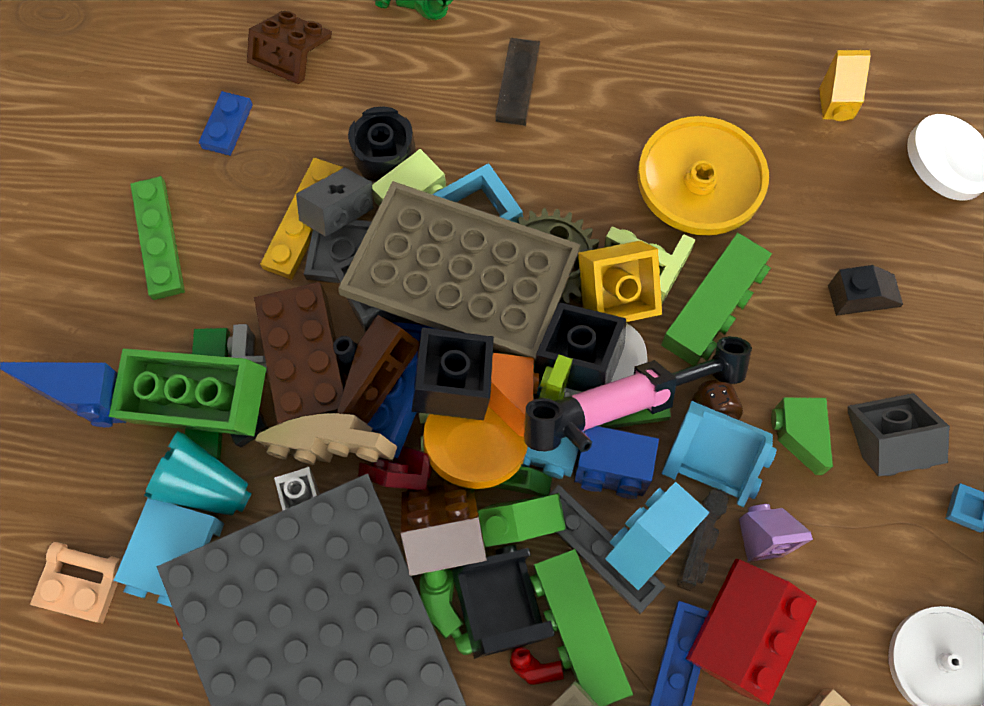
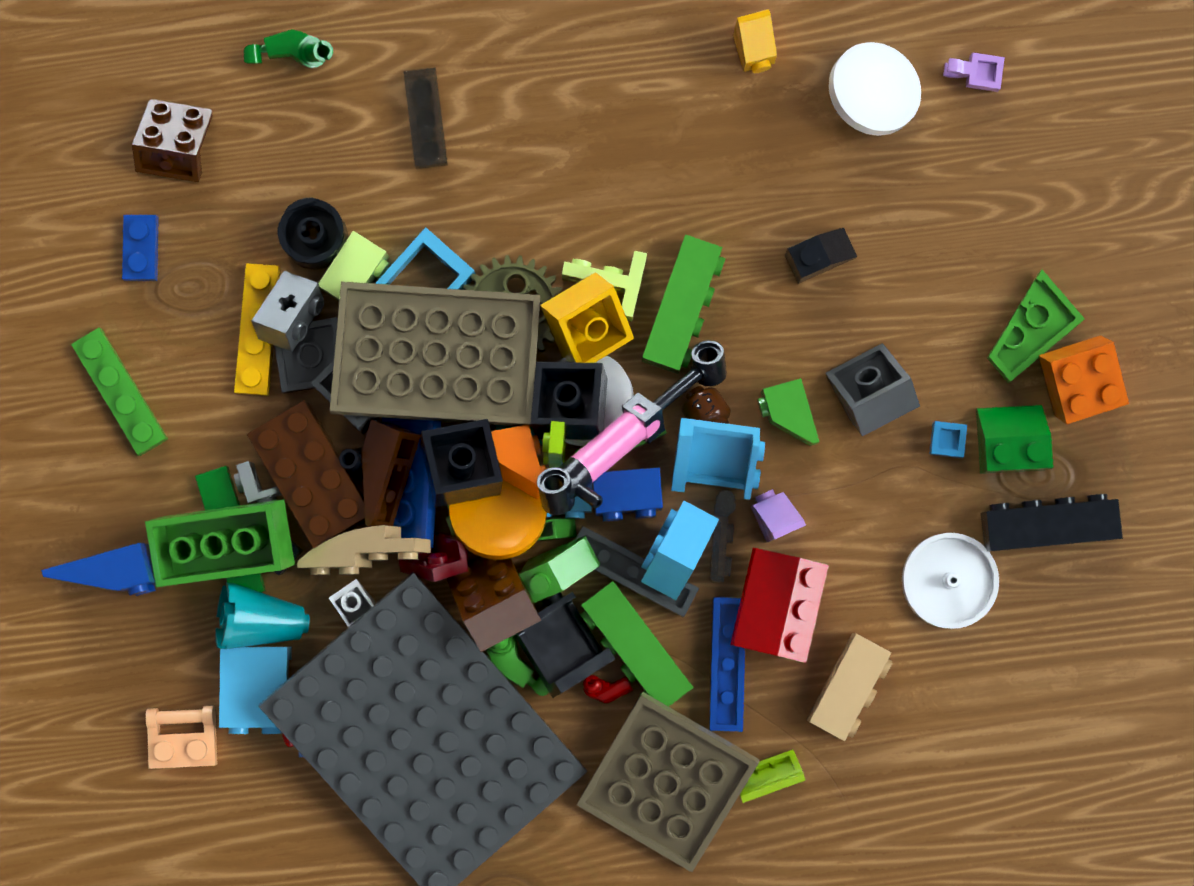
camera: 20 degrees left, 15 degrees up
(703, 175) = (638, 179): yellow dish -> none

